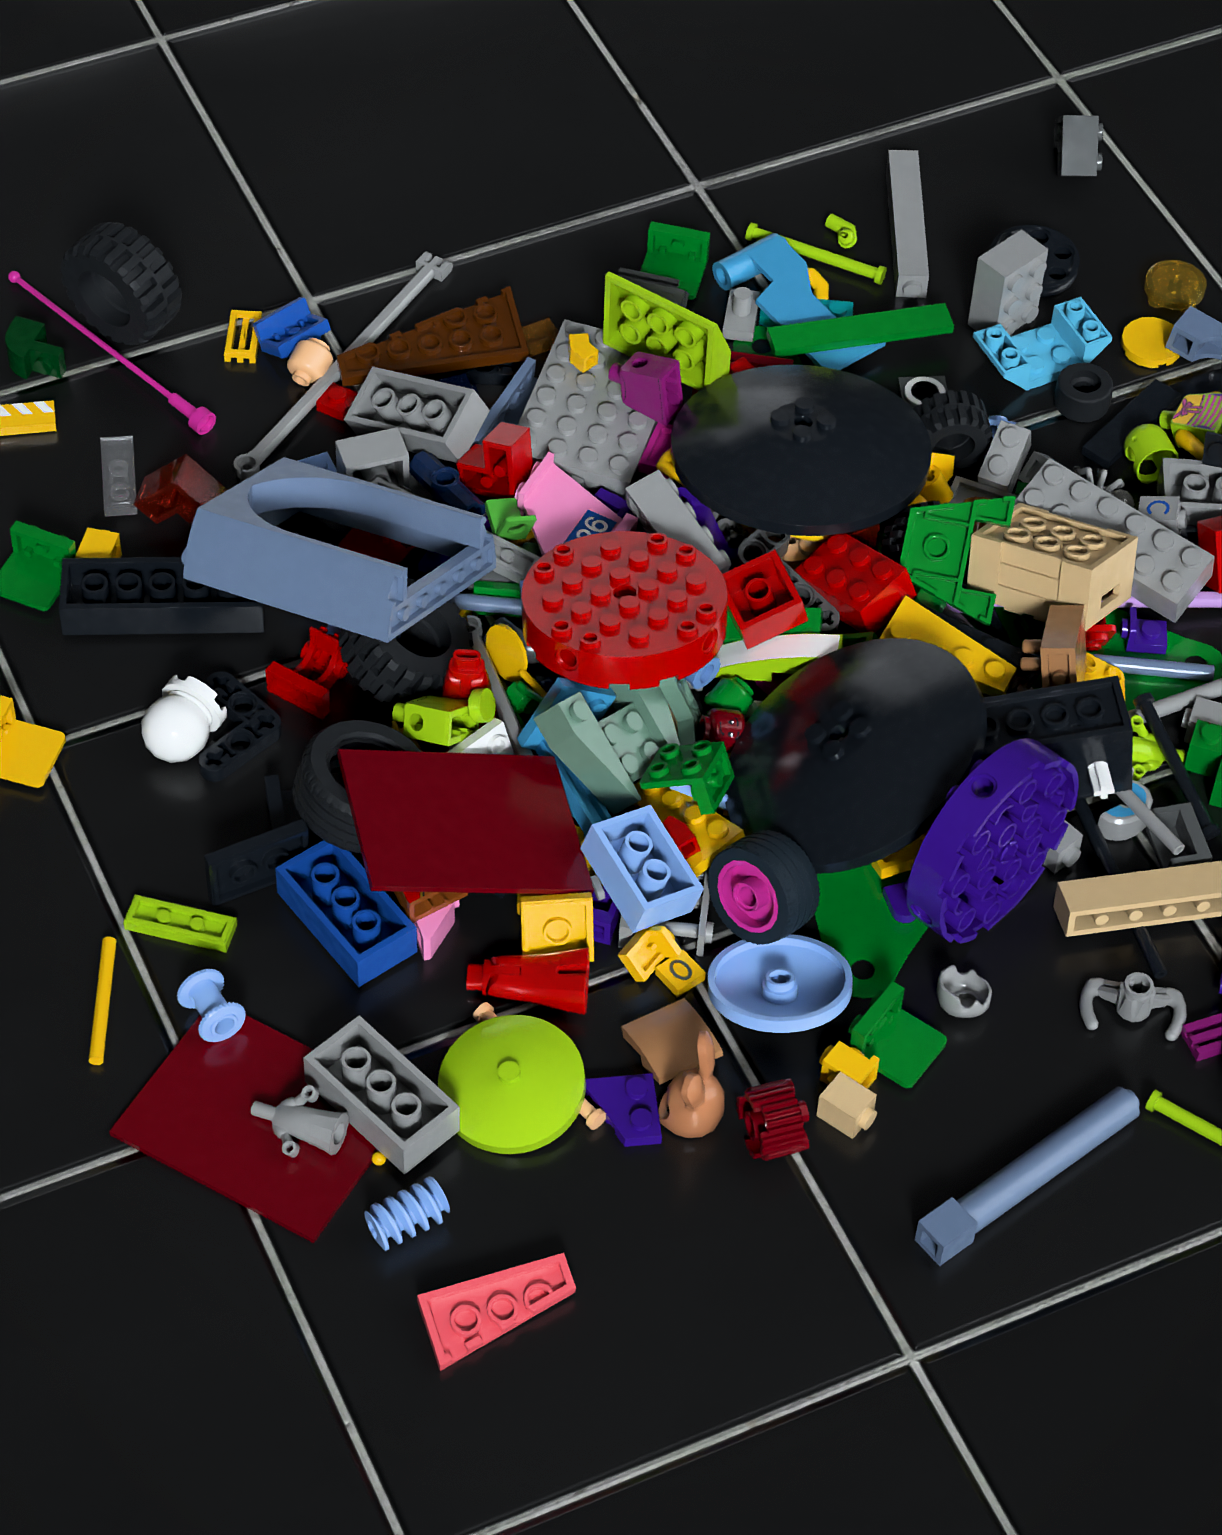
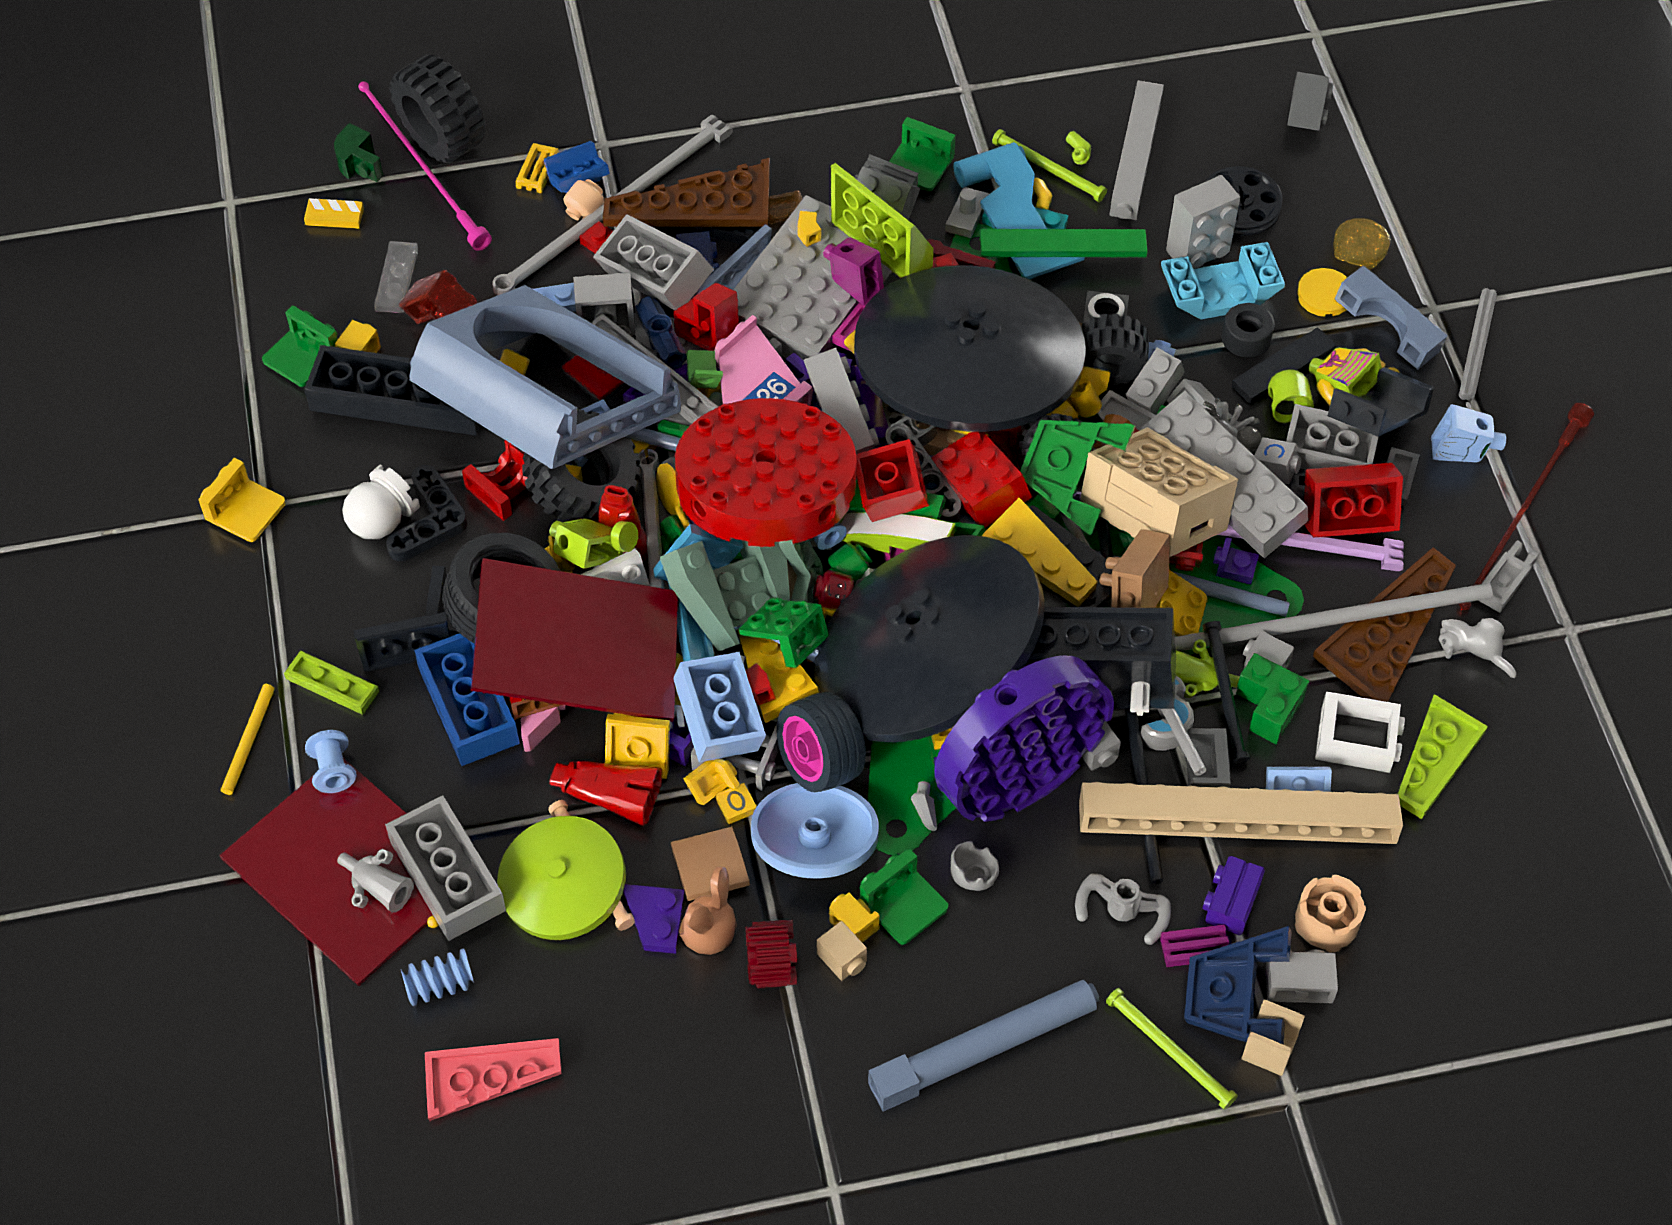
camera: 15 degrees right, 5 degrees up
(889, 939) = (925, 805): none -> light grey bar

